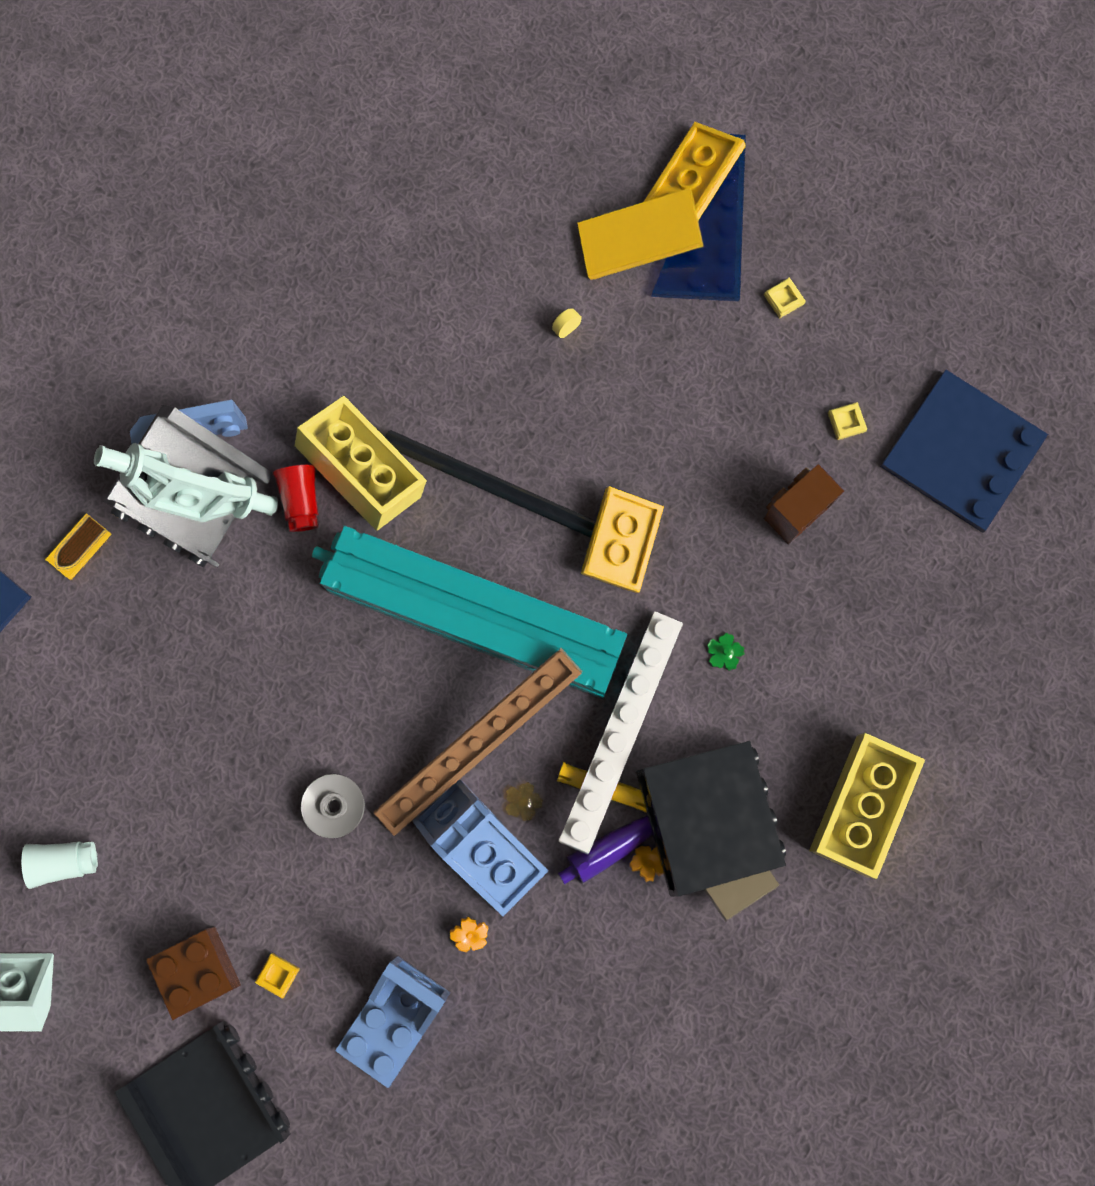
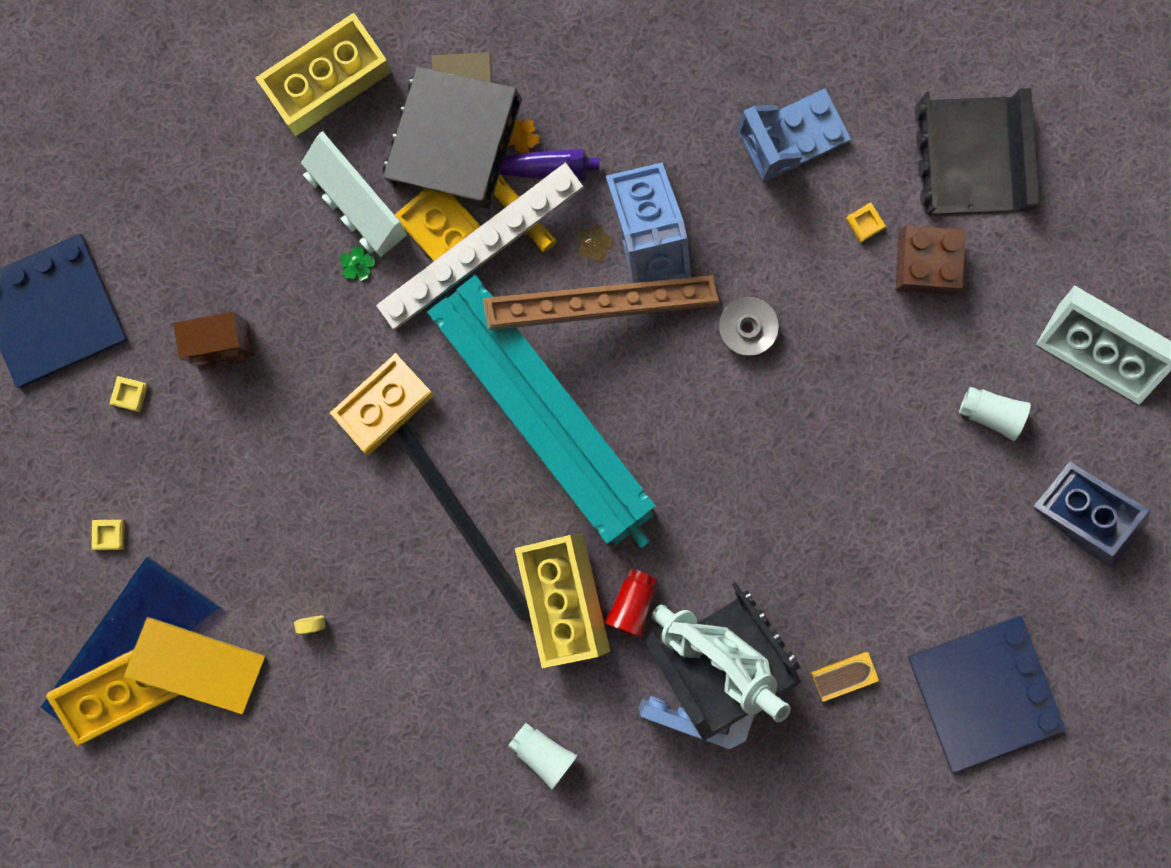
camera: 150 degrees left, 5 degrees up
(304, 331) = (542, 754): none -> light aqua plant
(469, 935) = (696, 163): light orange plant -> none
(674, 730) = (436, 222): none -> yellow tile
(766, 707) = (352, 195): none -> light aqua slope

